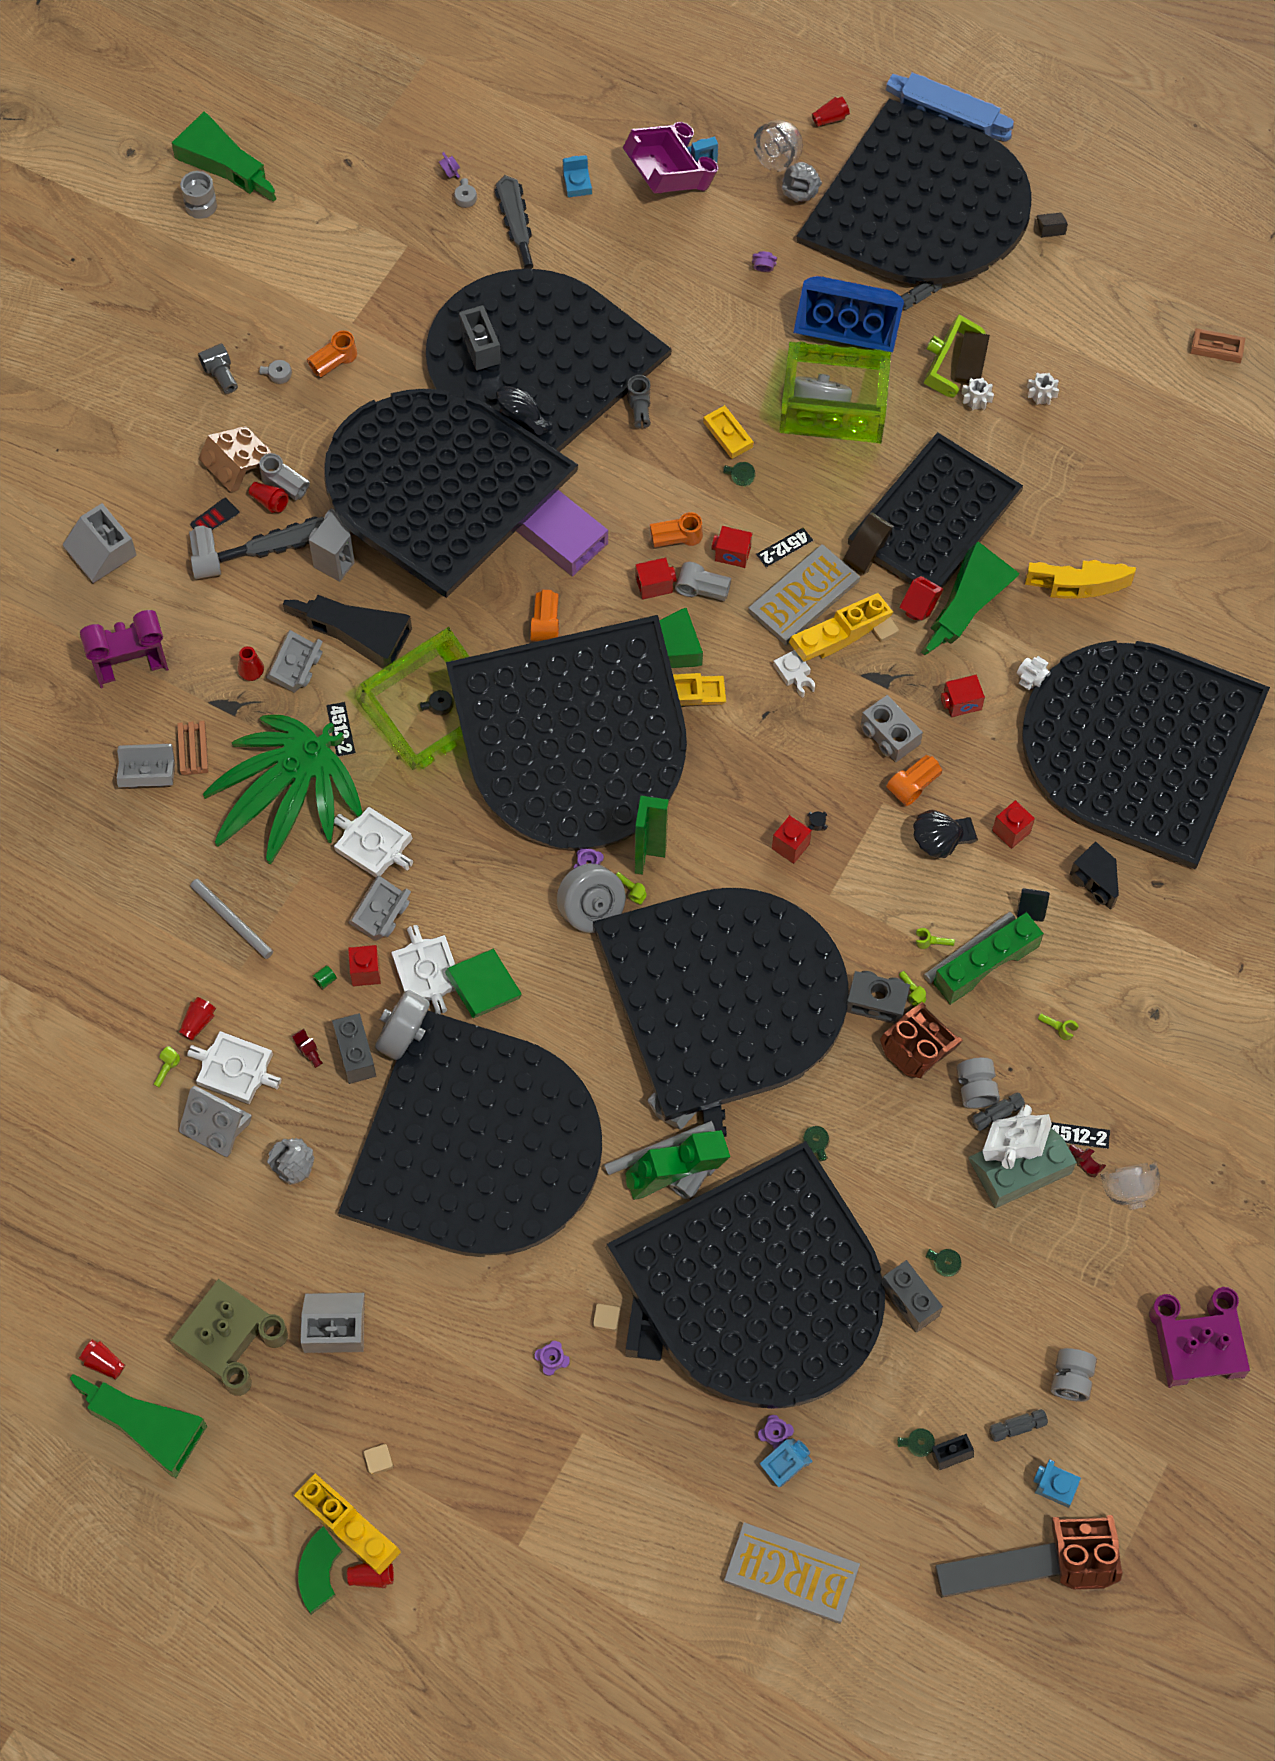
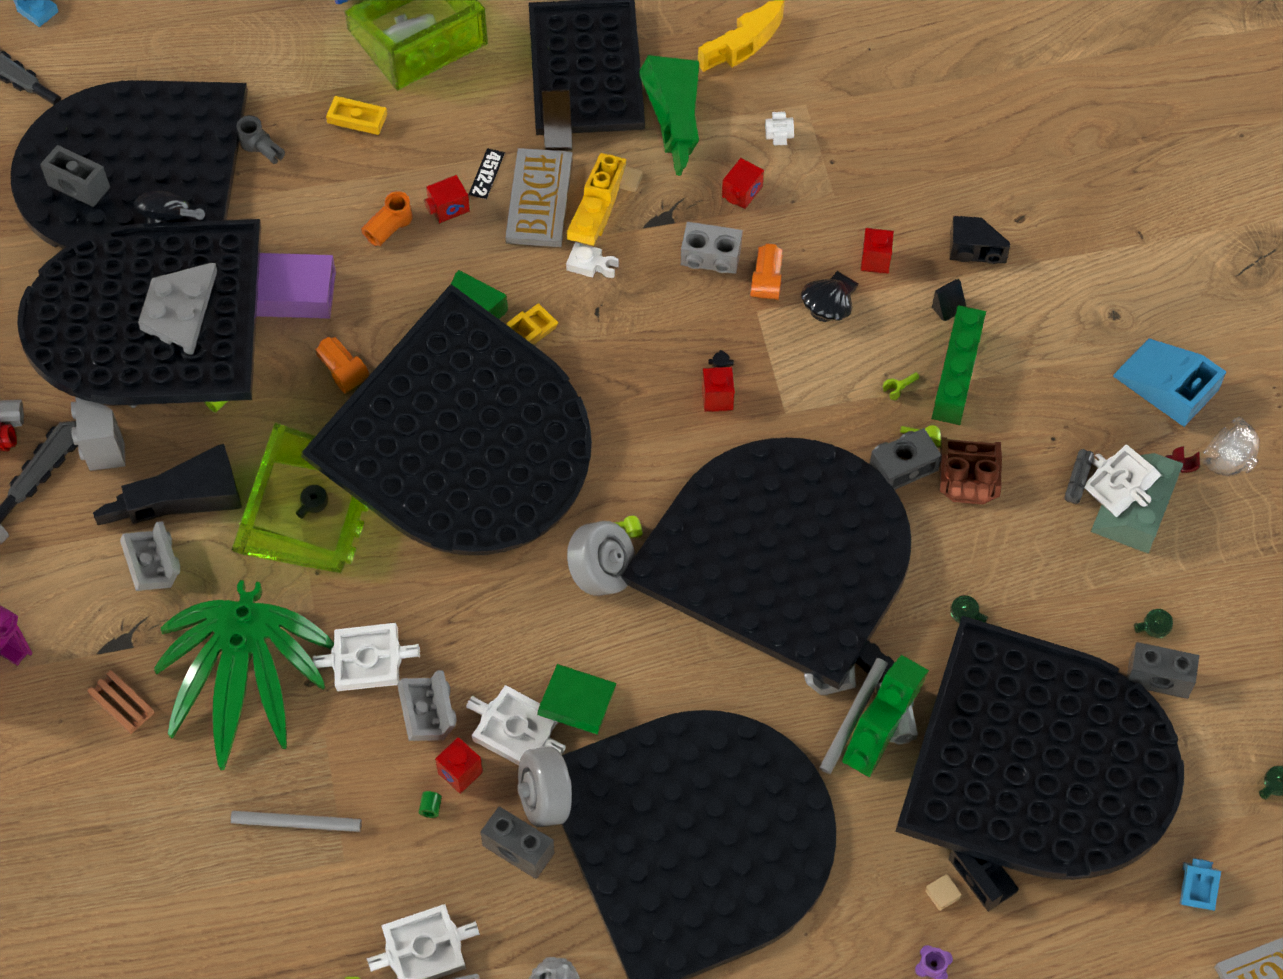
camera: 40 degrees left, 5 degrees down
(145, 765) = (92, 749): light grey bracket -> none
(196, 1018) = (347, 930): red cone -> none
(249, 664) = (110, 591): red cone -> none
(307, 1047) = (472, 878): dark red piece -> none
(339, 717) = (229, 577): sticker -> none
(457, 490) = (178, 305): none -> light grey wing
(588, 855) = (562, 527): medium lavender plate -> none
(650, 830) = (609, 460): green fence -> none
(654, 578) = (405, 268): red brick -> none
(695, 580) = (442, 247): light grey piece -> none
(742, 473) = (397, 140): clear green piece -> none
(774, 1423) = (1168, 860): medium lavender plate -> none
(921, 598) = (640, 133): red brick -> none
(978, 1087) = (1044, 463): light grey wheel -> none
(1002, 922) = (933, 370): light grey bar -> none
(1060, 1026) = (1062, 377): lime hand -> none
(1083, 1135) = (1159, 443): black sticker -> none
(1140, 742) = (908, 125): black plate -> none
(1141, 1095) = (1171, 379): none -> dark azure slope

